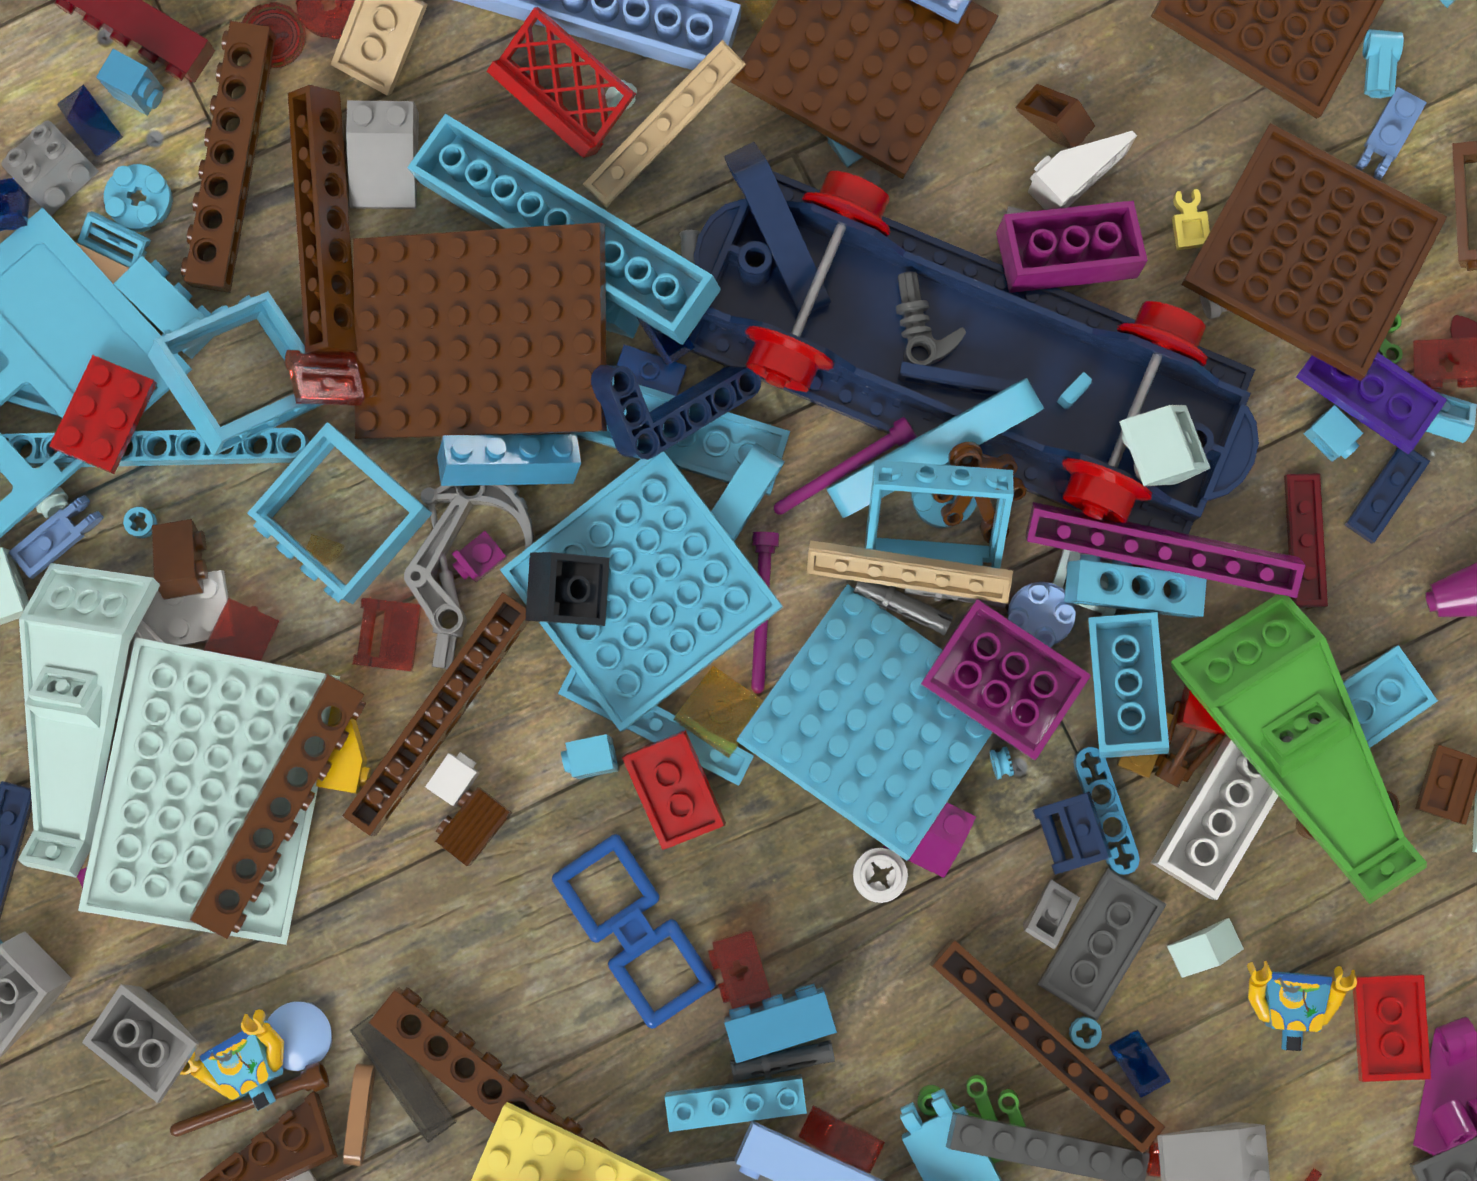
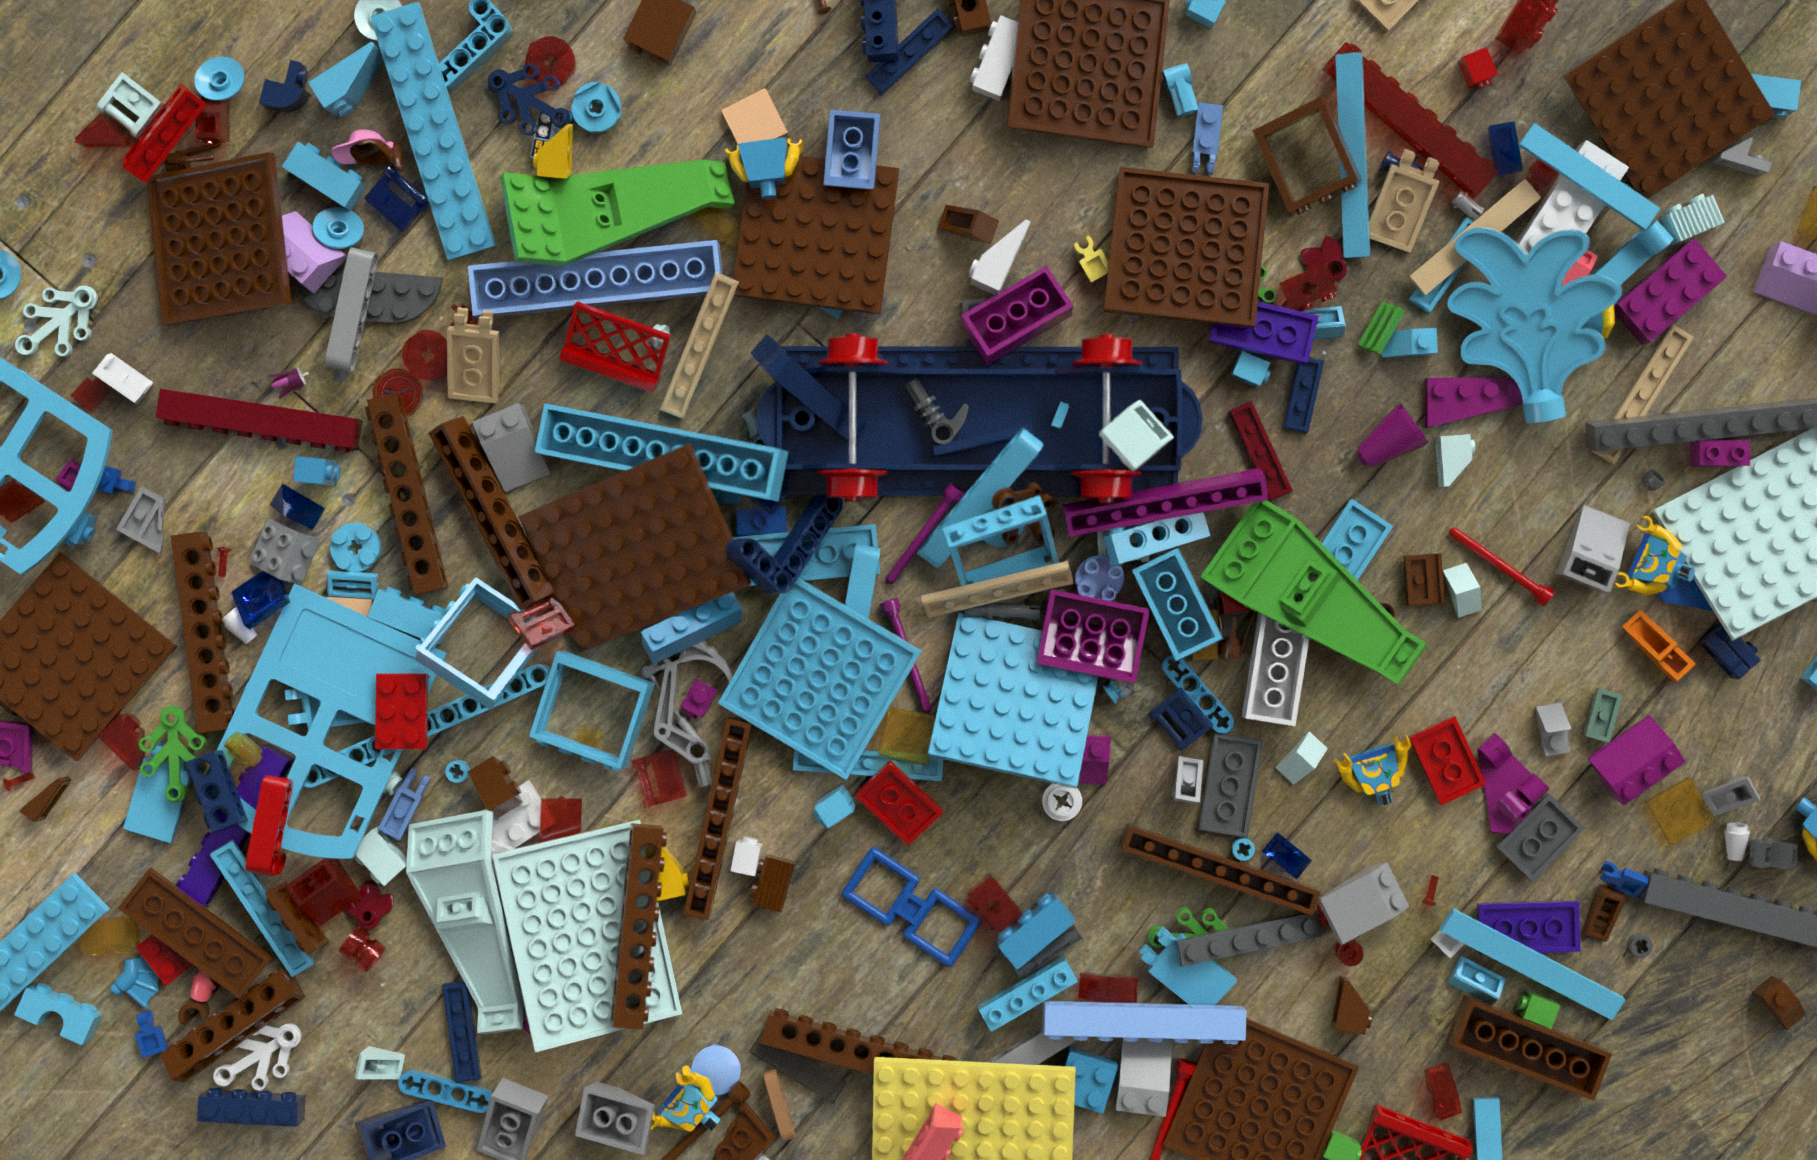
camera: 25 degrees left, 5 degrees up
(567, 588) = (770, 699): black slope -> none

